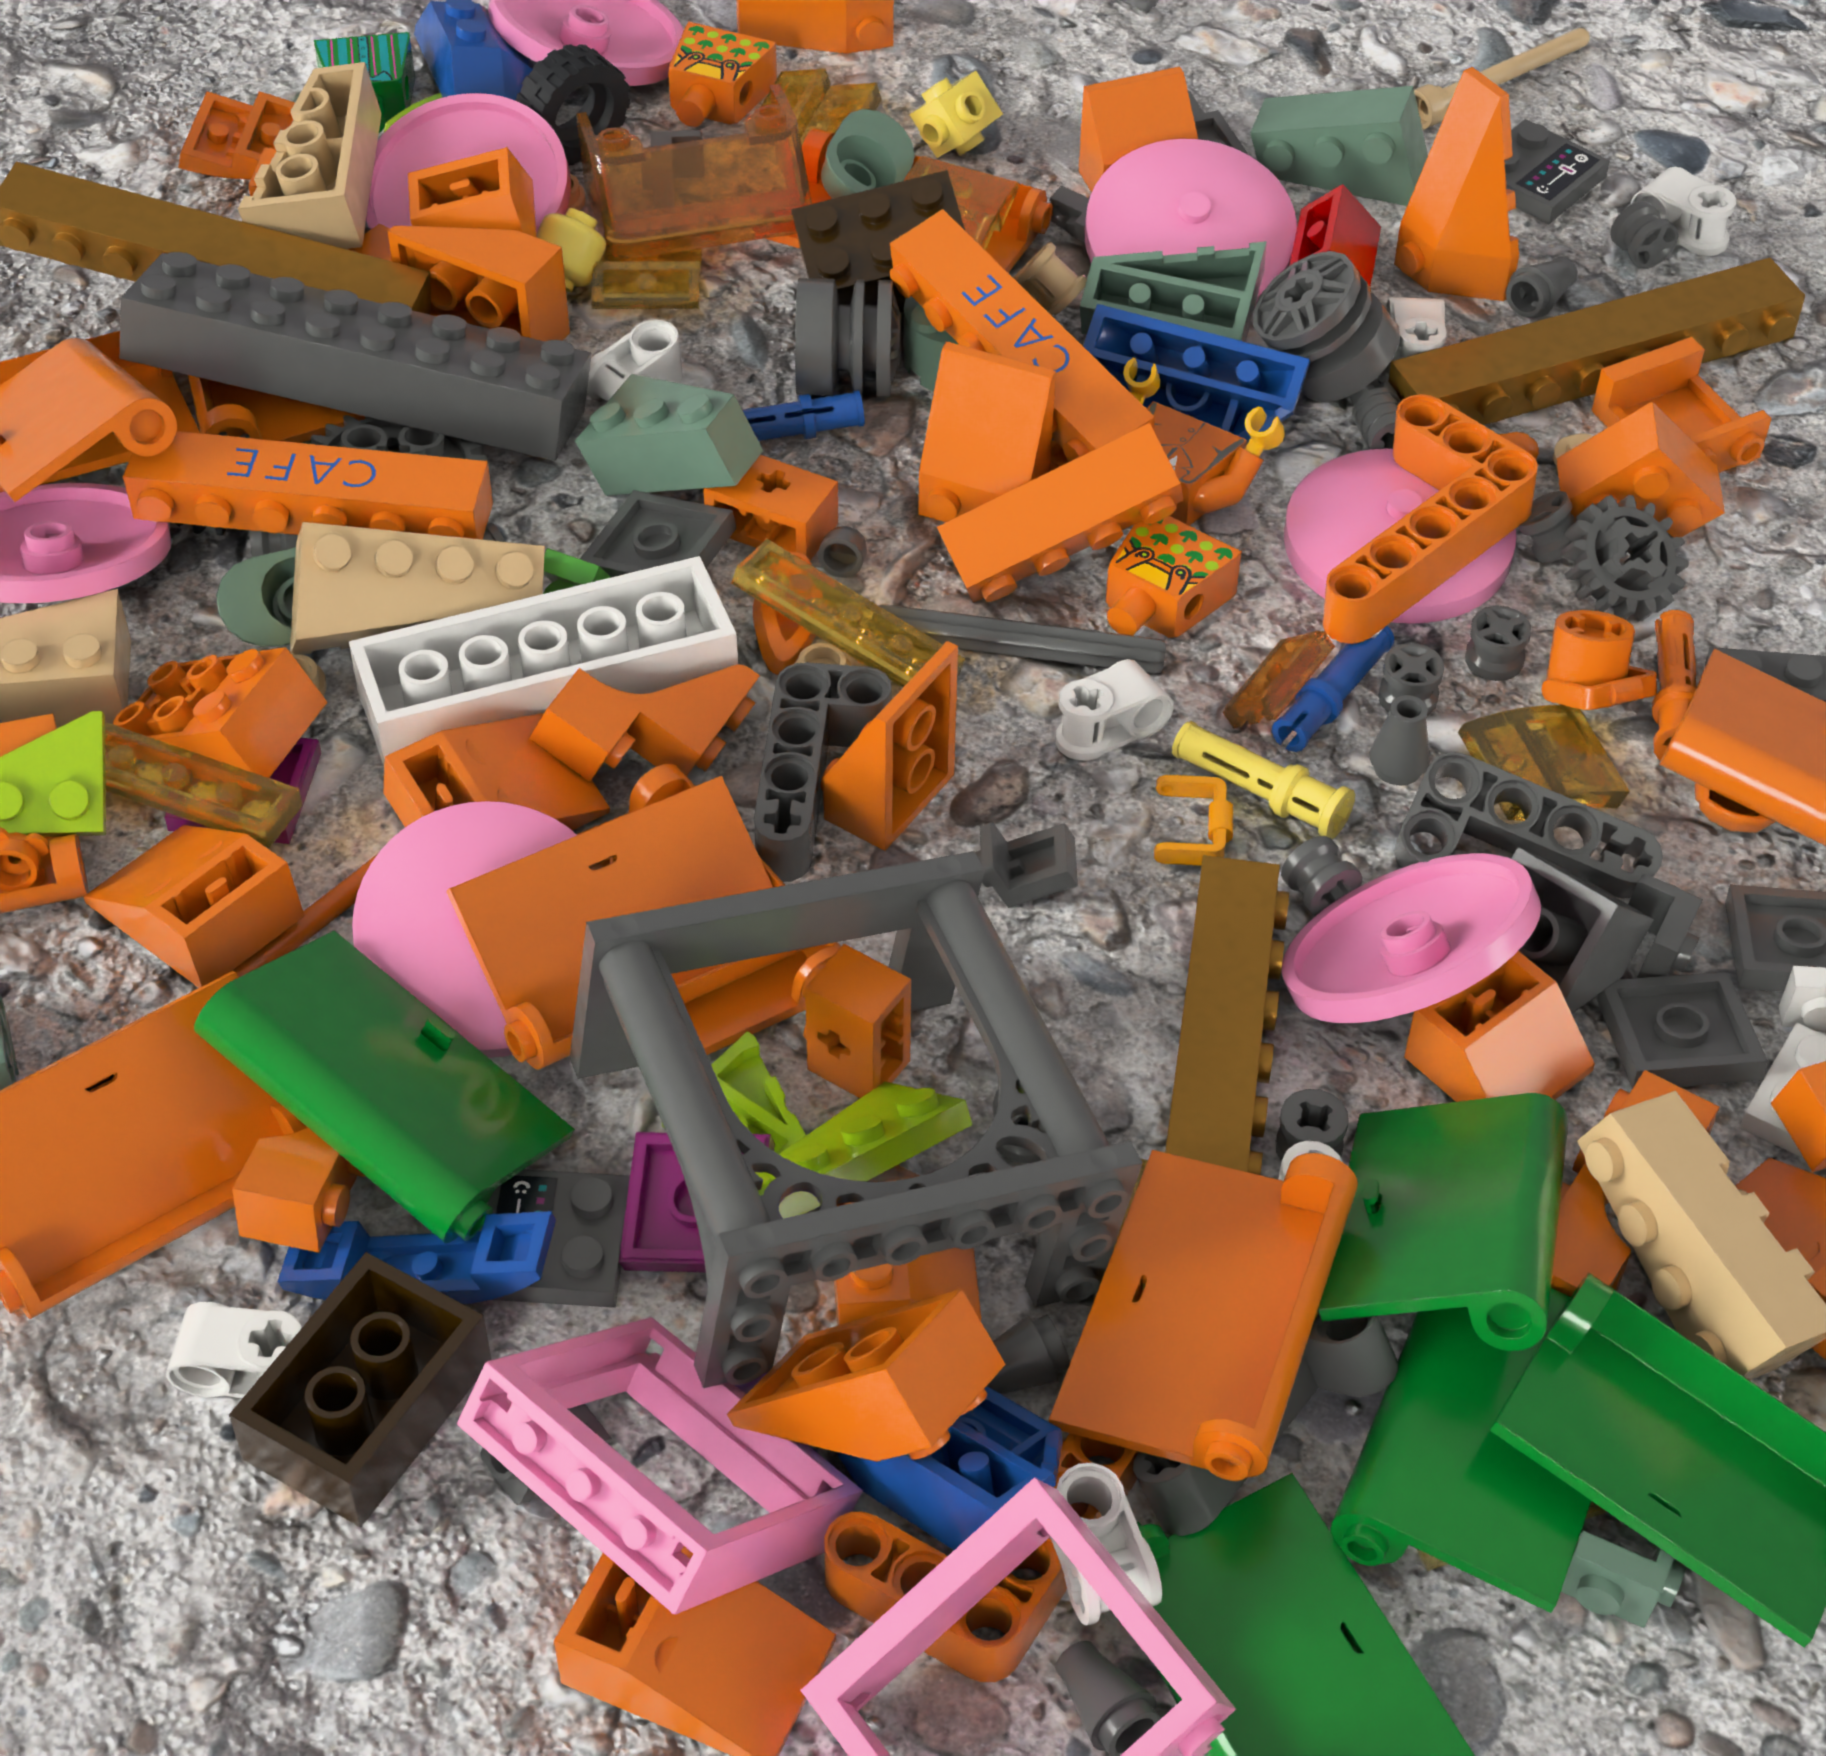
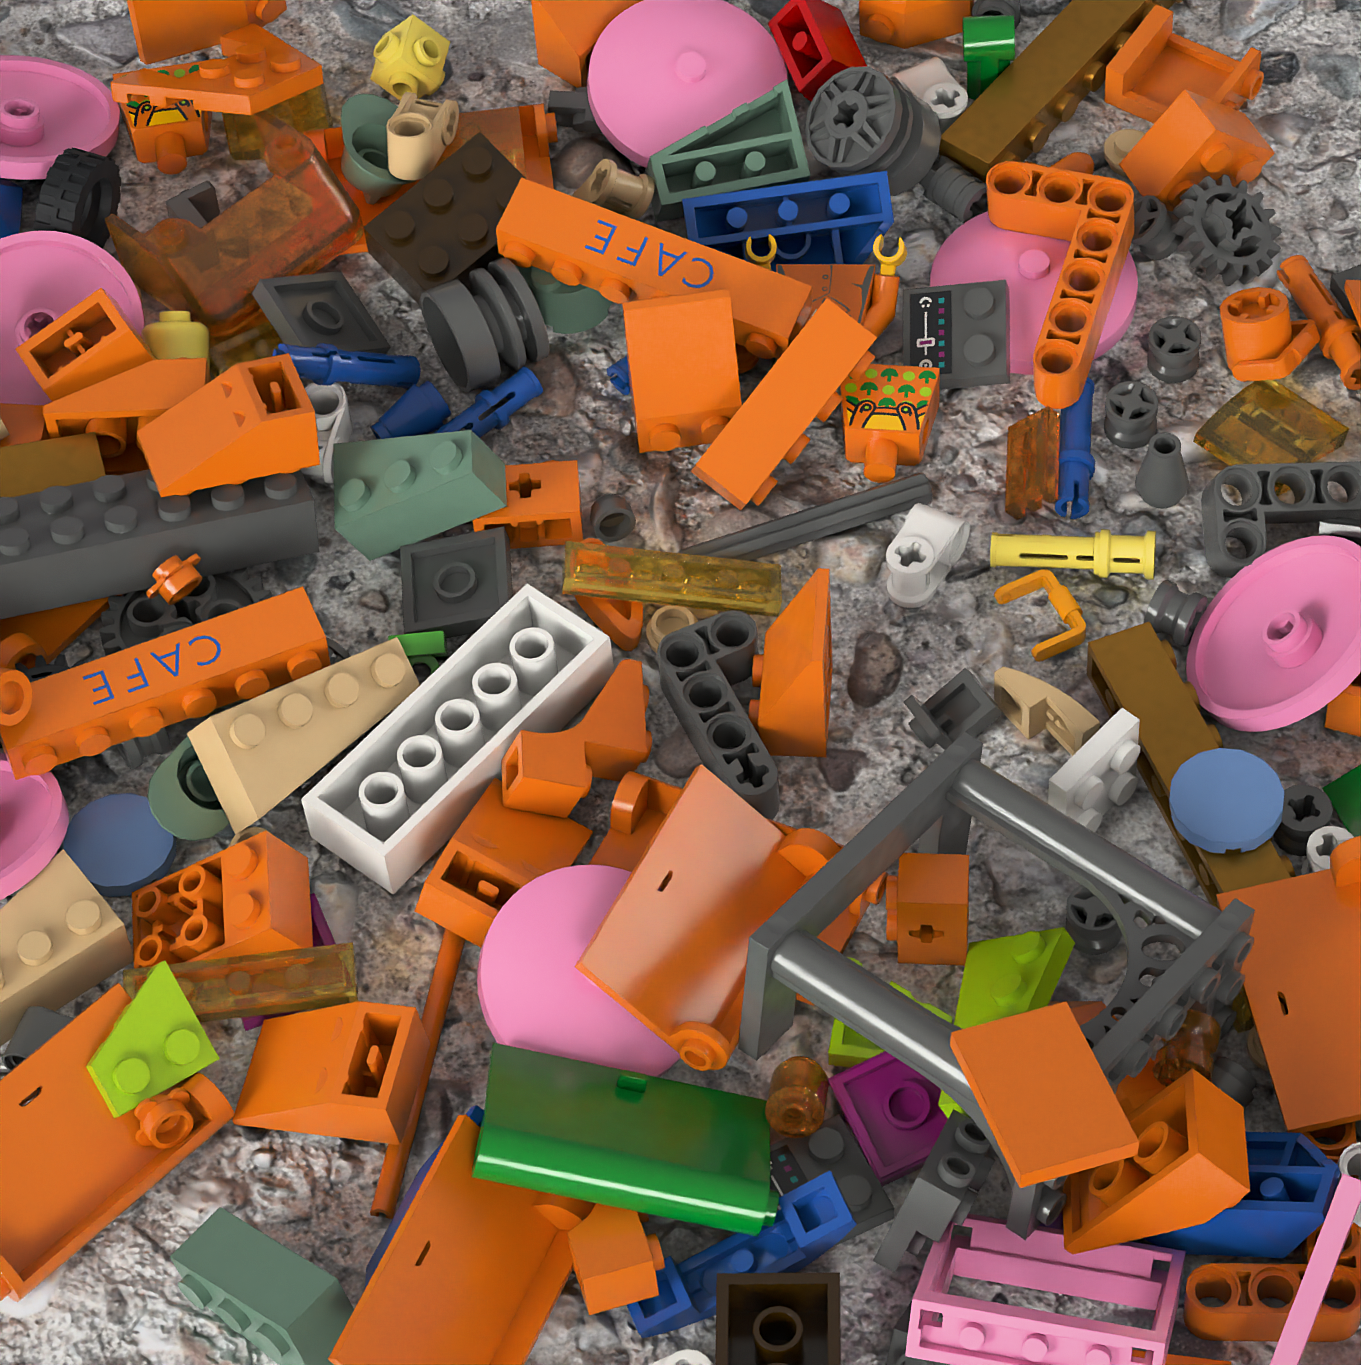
camera: 25 degrees left, 5 degrees up
(182, 621) = (119, 844): none -> medium blue tile
(396, 415) = (175, 579): none -> orange plate
(534, 309) = (234, 430): none -> orange slope
(595, 1135) = (797, 1097): none -> clear orange brick
(632, 1284) = (939, 1190): none -> dark grey plate
(675, 307) = (328, 365): none -> blue pin
(708, 277) = (318, 311): none -> dark grey plate
(743, 381) = (414, 413): none -> blue cone
(750, 1219) = (1043, 1094): none -> orange tile
(810, 63) = (254, 76): none -> orange wing
(901, 154) = (419, 135): none -> tan piece
(1012, 1283) = (1188, 1049): none -> clear orange wheel
(1111, 982) = (1099, 772): none -> white plate
(1121, 901) = (1040, 706): none -> tan slope
(1229, 1065) = (1226, 800): none -> medium blue tile
(1290, 535) = (959, 331): none -> dark grey plate
(1492, 300) = (987, 49): none -> green piece

